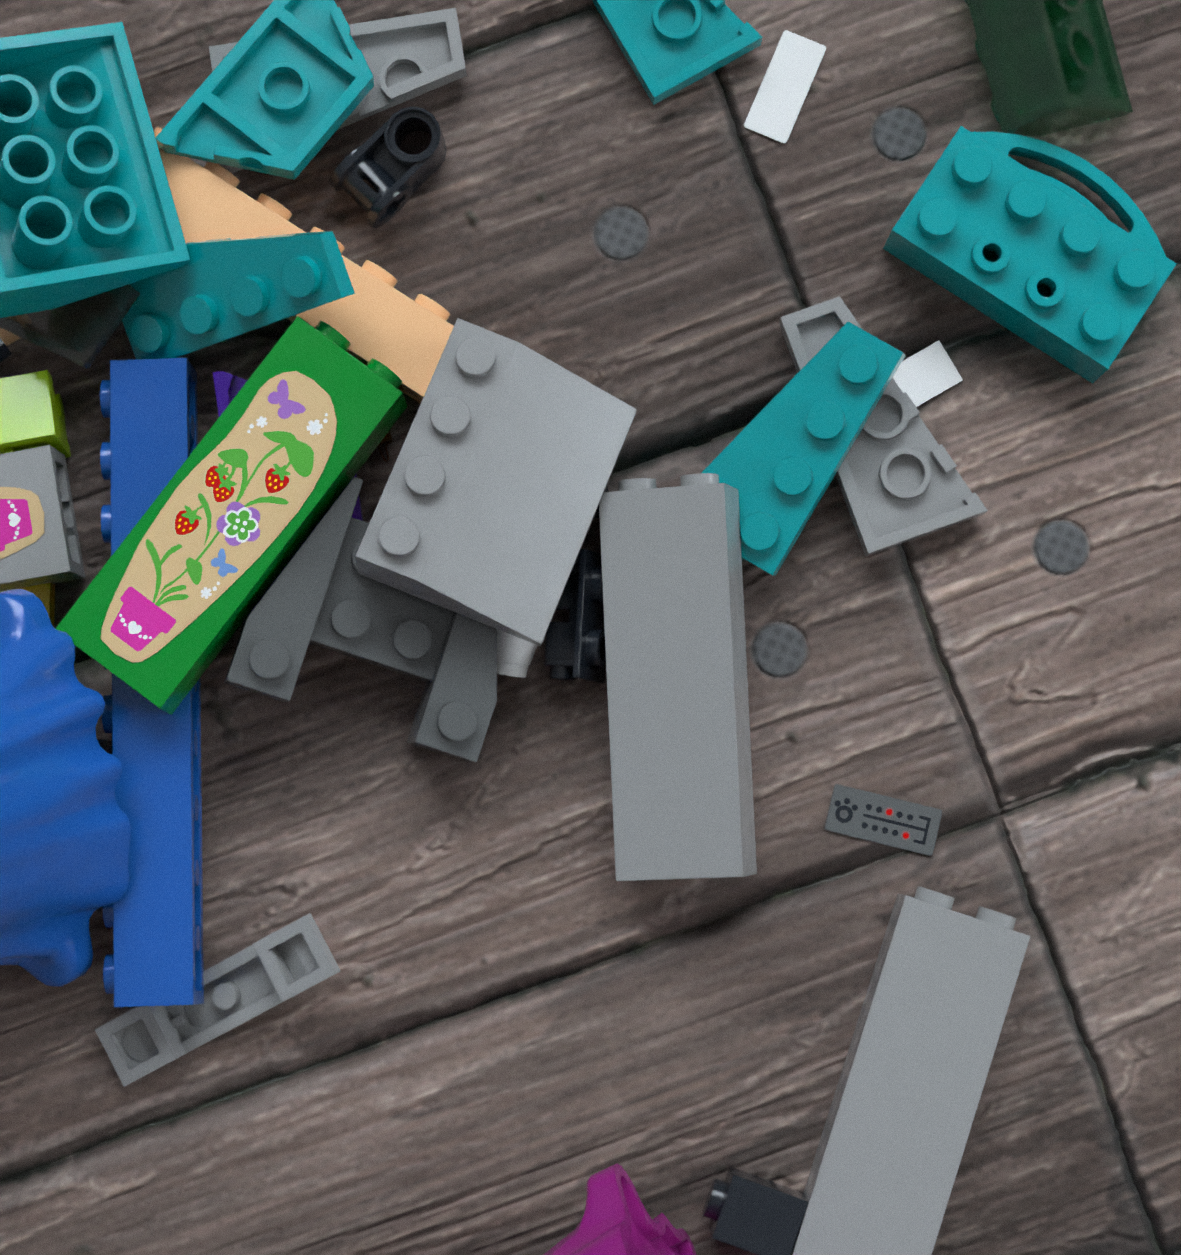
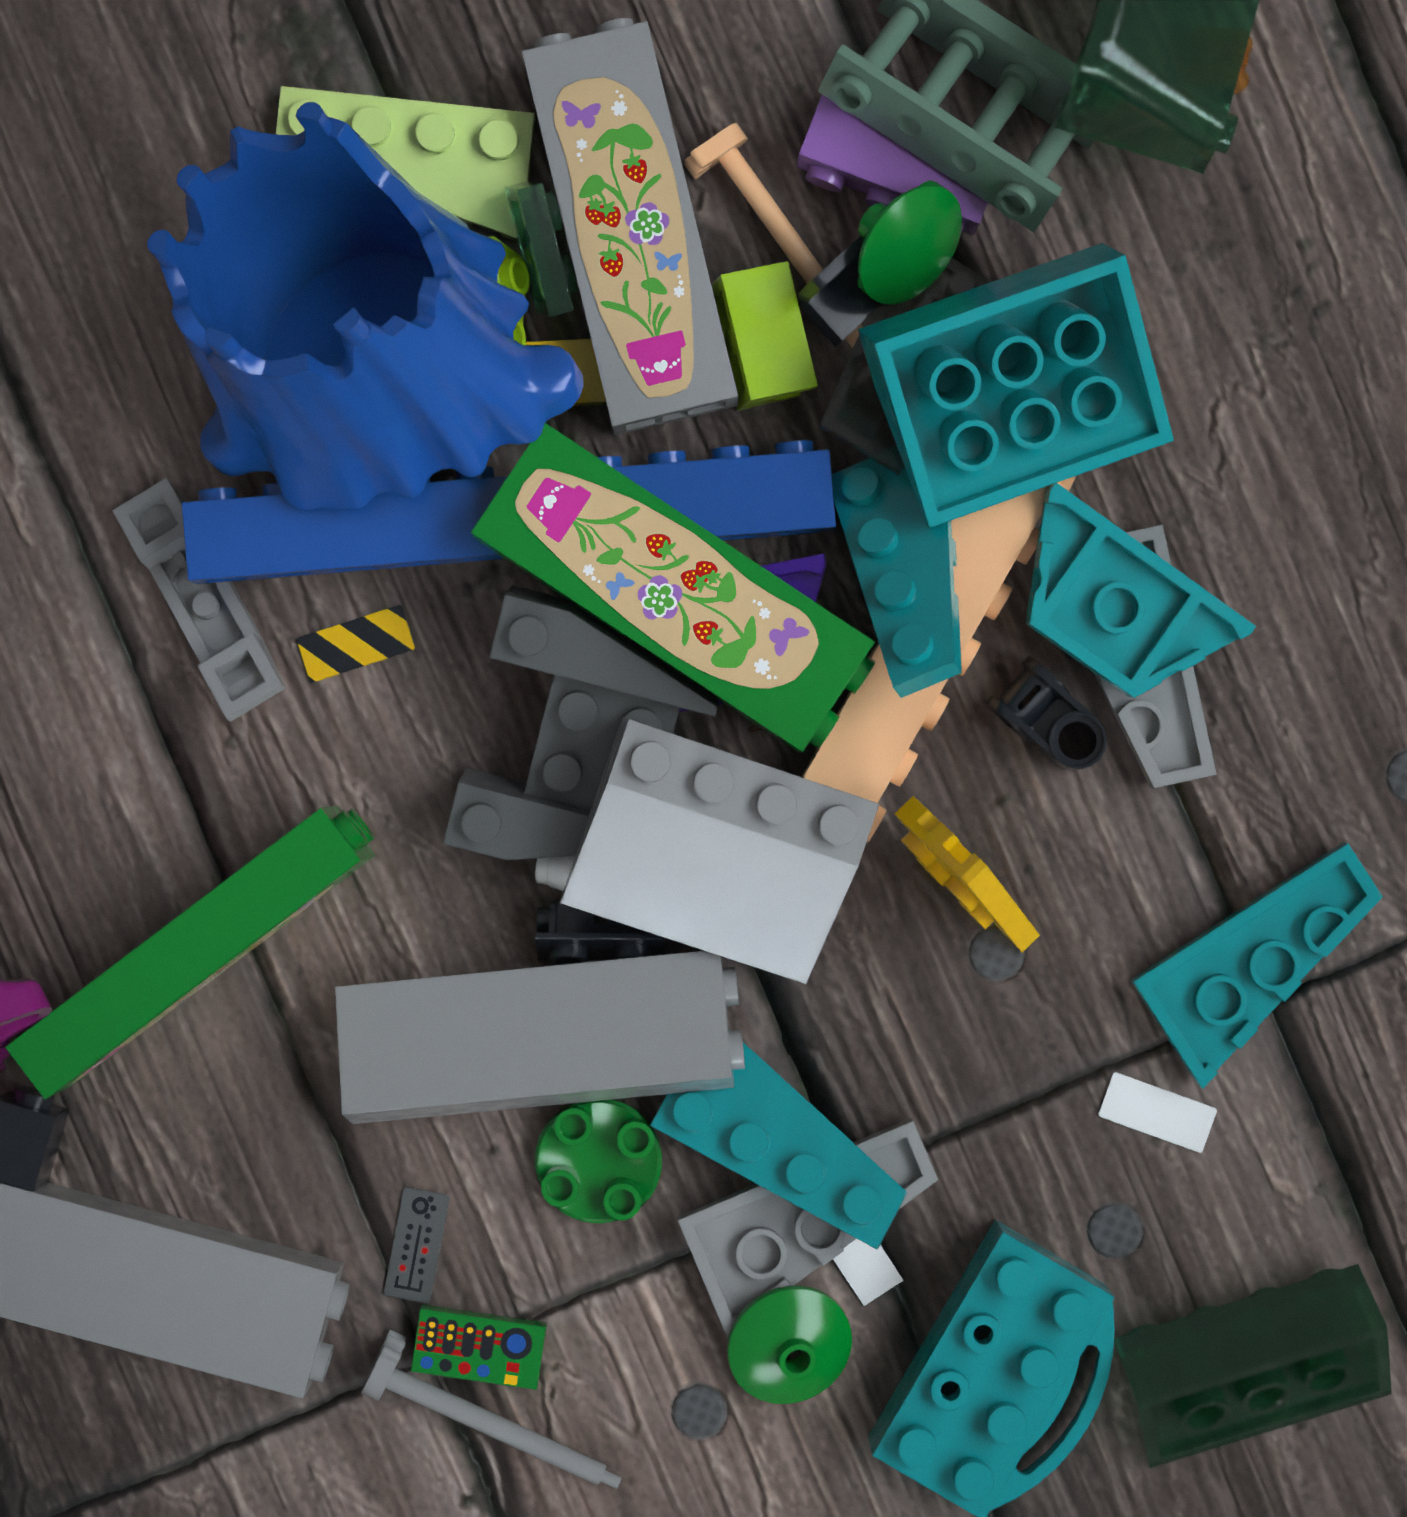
camera: 85 degrees right, 5 degrees up
(276, 848) = (355, 643): none -> sticker
(541, 238) = (963, 874): none -> yellow wing
(569, 1023) = (193, 949): none -> green brick
(806, 631) = (598, 1161): none -> green dish
(980, 463) = (776, 1326): none -> green dish
(987, 761) = (479, 1347): none -> tile
(1012, 856) = (385, 1375): none -> light grey piece

